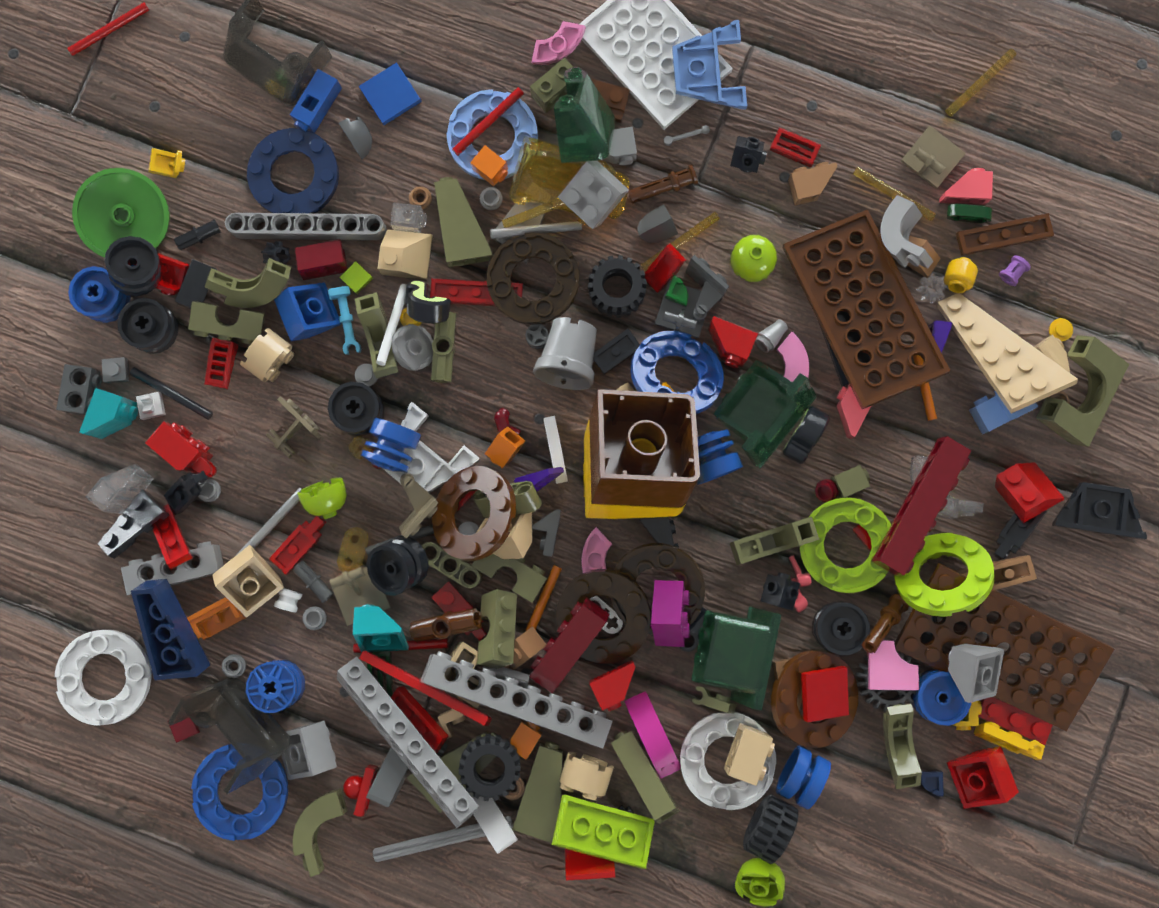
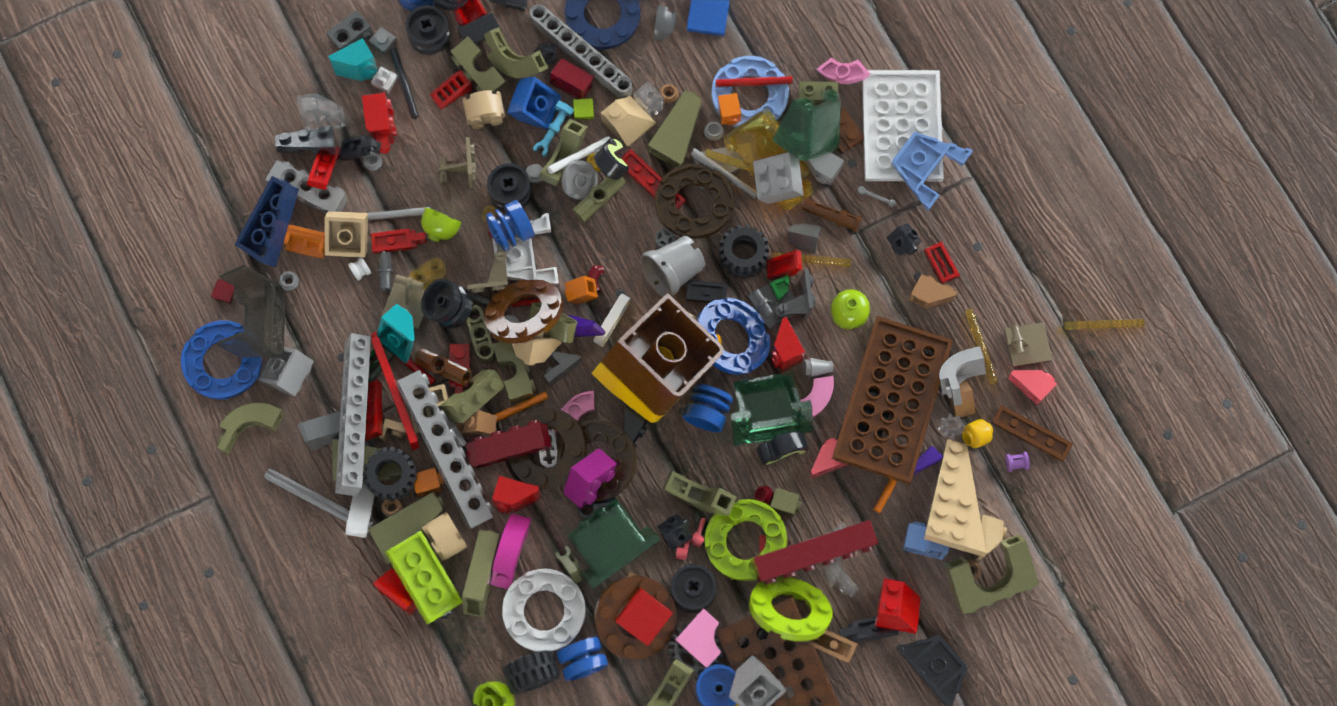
camera: 30 degrees right, 10 degrees down
(69, 677) = (198, 192): white plate -> none
(288, 686) = (309, 322): blue wheel -> none
(314, 618) = (365, 294): light grey plate -> none
(358, 788) = (292, 420): red tile -> none
(749, 754) = (560, 610): tan brick -> none
(889, 616) = (731, 608): reddish brown pin -> none
(969, 213) = (1019, 399): dark green beam -> none
(1061, 329) = (1015, 526): yellow plate -> none

